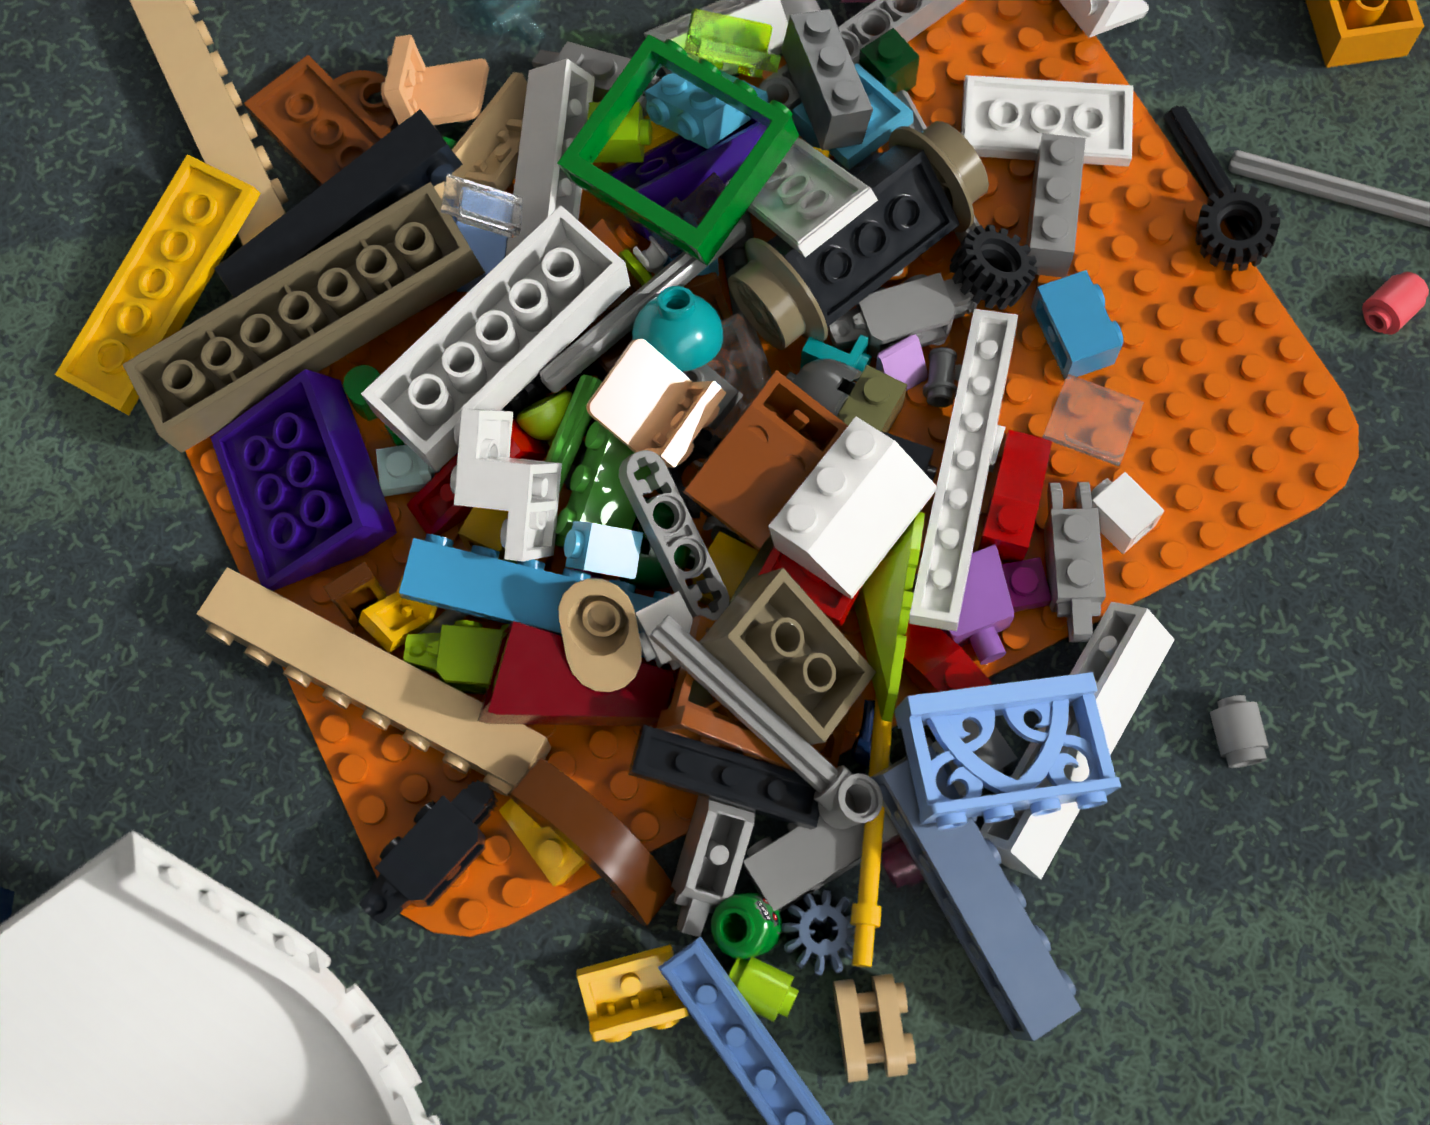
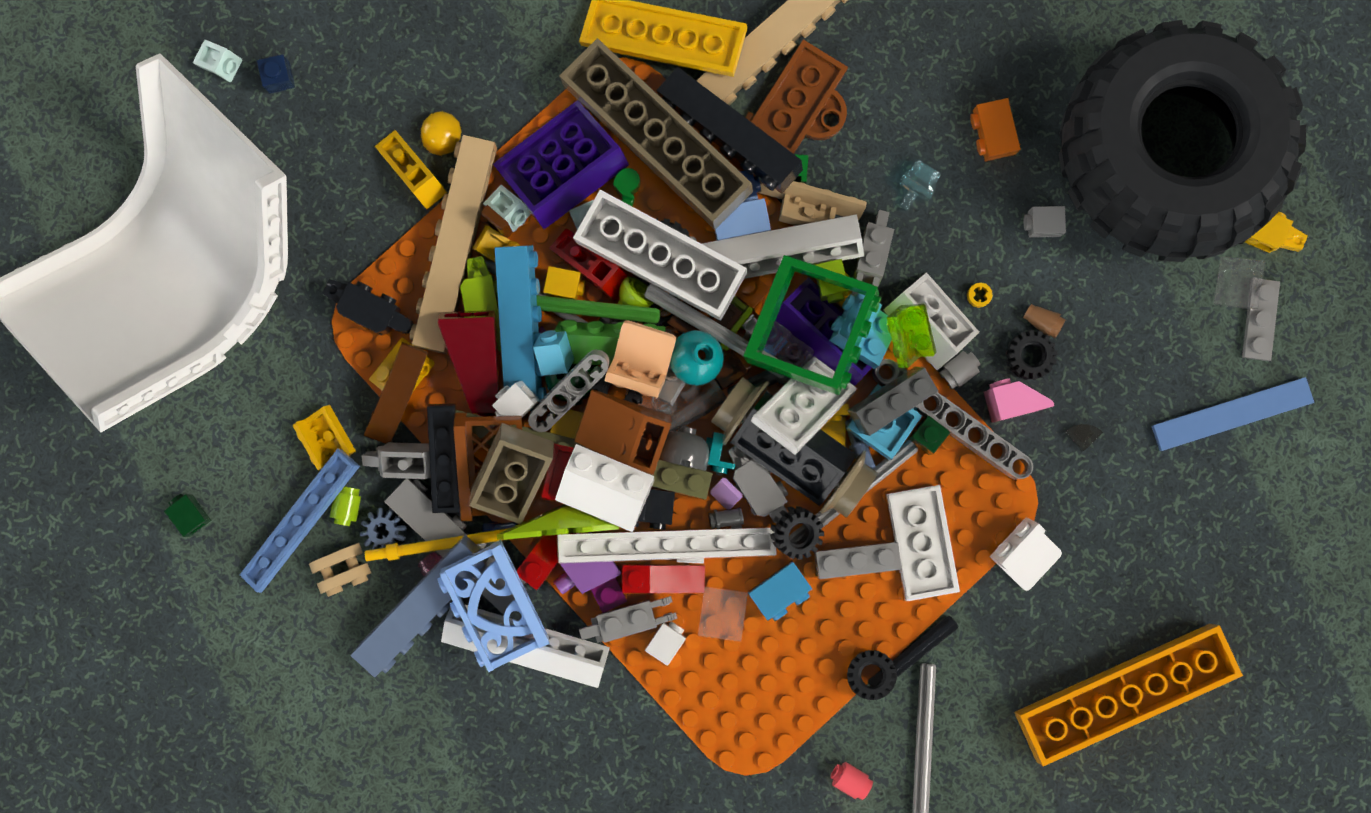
camera: 65 degrees right, 15 degrees up
(183, 666) = (440, 133): none -> yellow hair
(225, 724) = (411, 169): none -> yellow slope
(331, 569) = (508, 207): none -> light aqua bracket
(442, 91) = (841, 155): light nougat bracket -> none
(482, 206) = (748, 217): clear piece -> none
(493, 480) = (572, 288): white bracket -> none
(600, 634) = (499, 367): tan piece -> none
(746, 926) = (373, 488): green head -> none
(827, 780) = (454, 513): light grey piece -> none
(1239, 731) = (555, 735): light grey brick -> none

